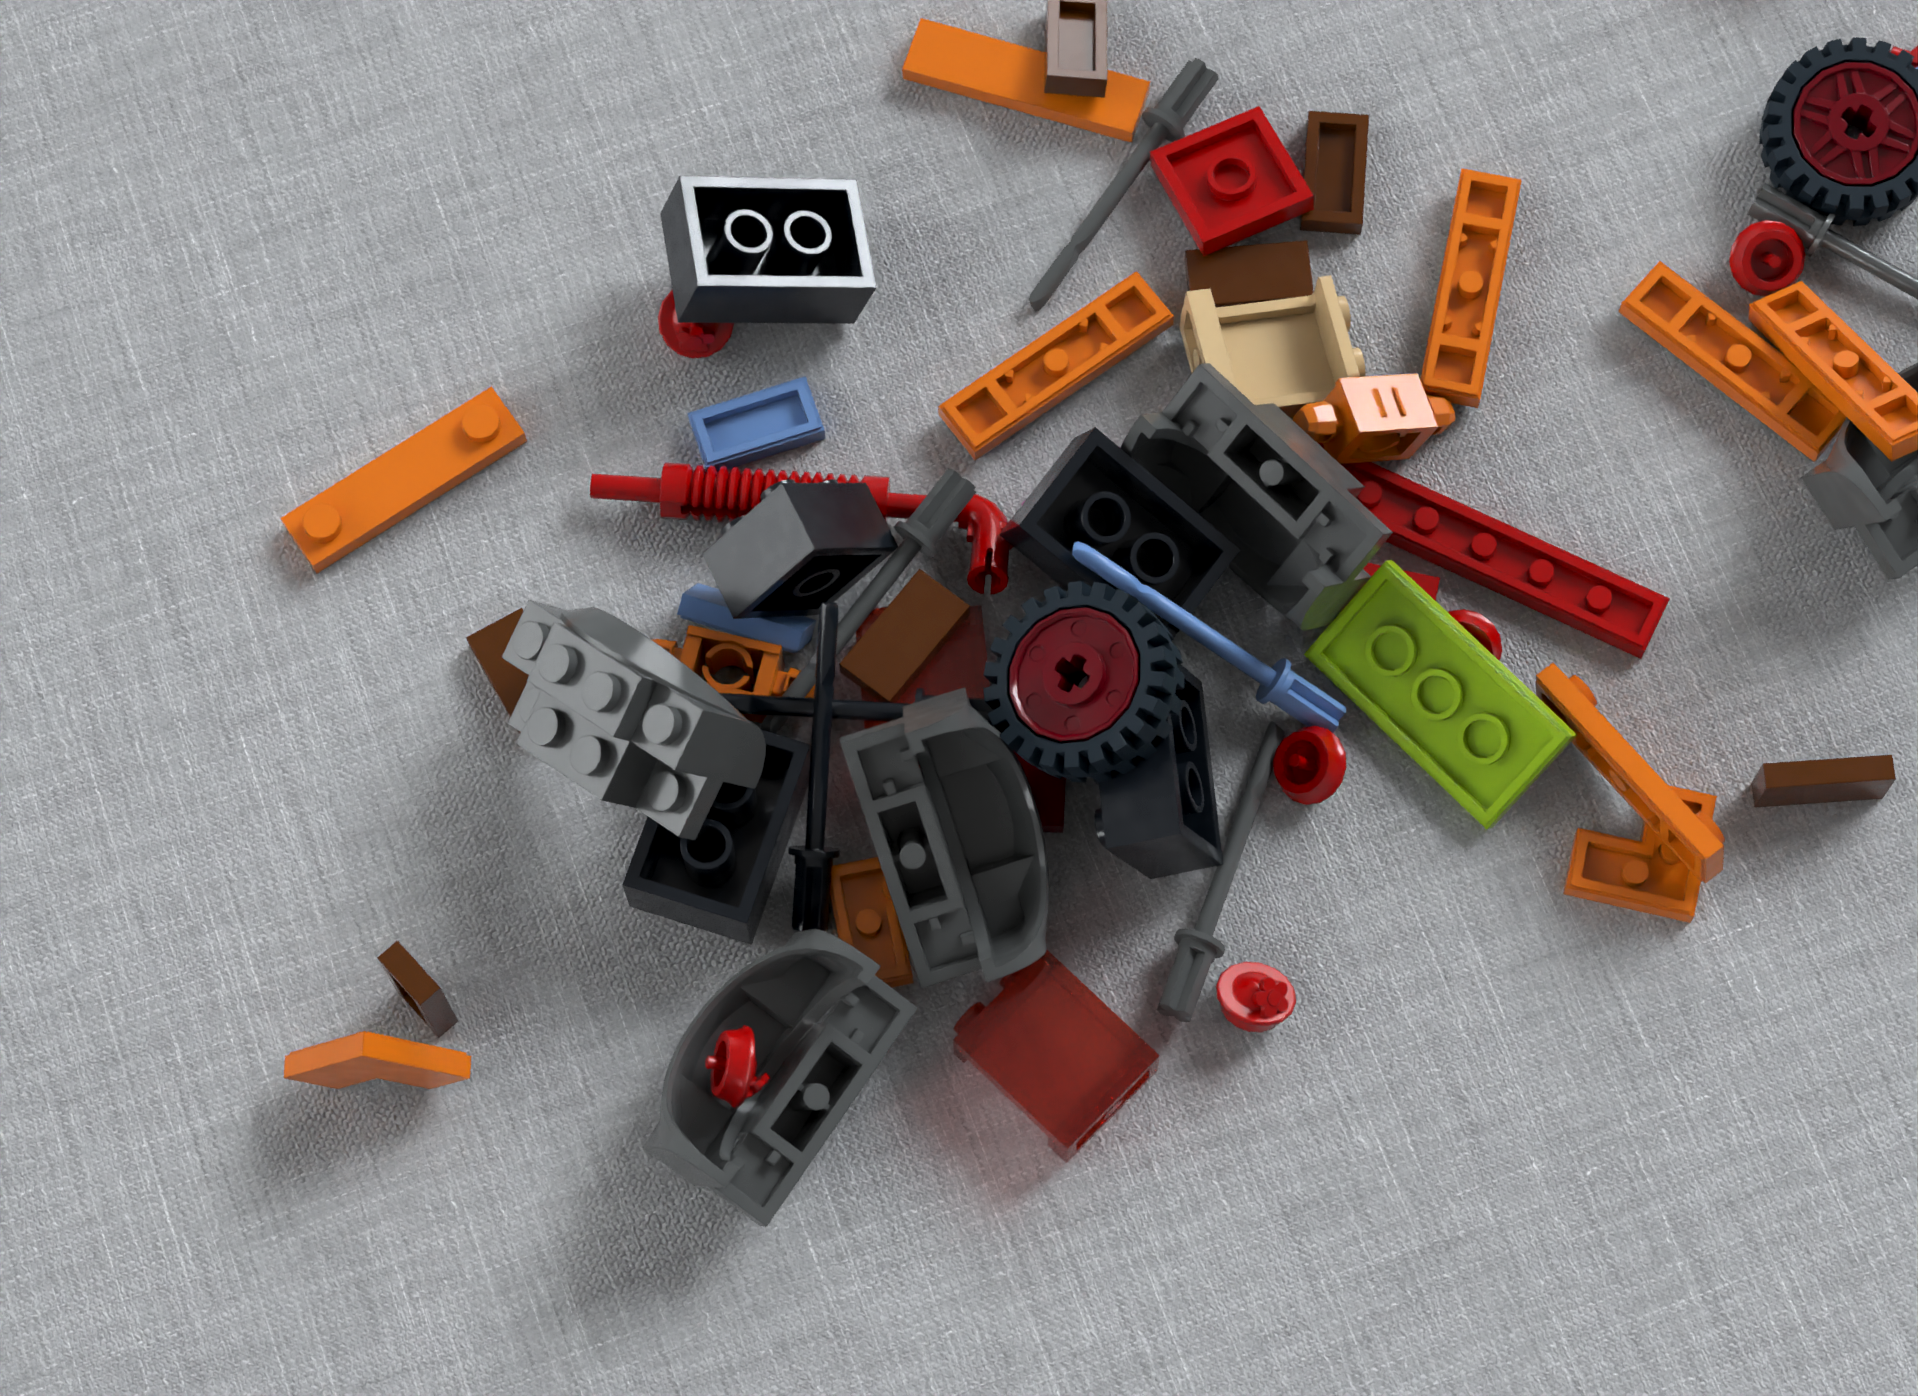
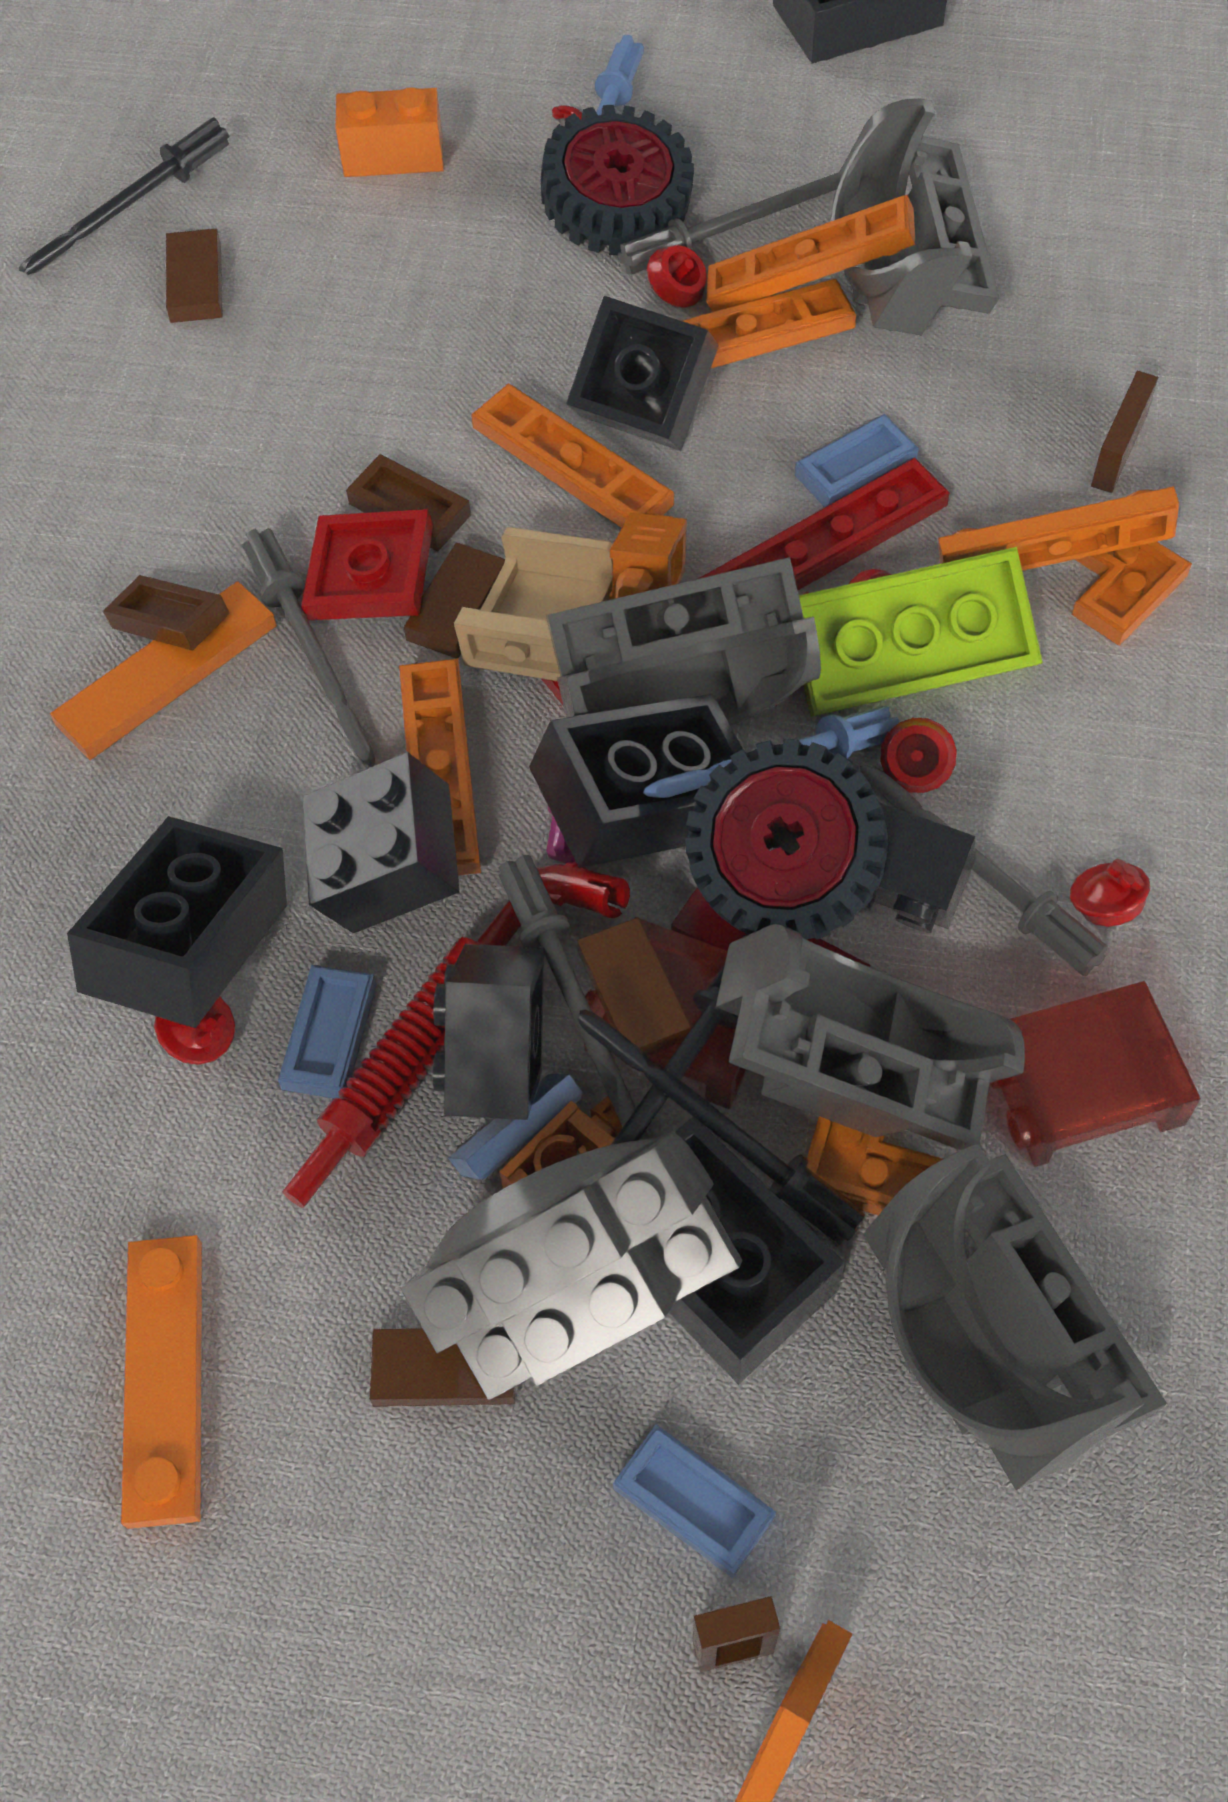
camera: 60 degrees left, 10 degrees down
(520, 919) = (694, 1500): none -> medium blue tile
(735, 1067) = (987, 1347): red hat -> none
(933, 361) = (380, 843): none -> black brick
(1587, 295) = (642, 373): none -> black brick
(1637, 547) = (855, 460): none -> medium blue tile

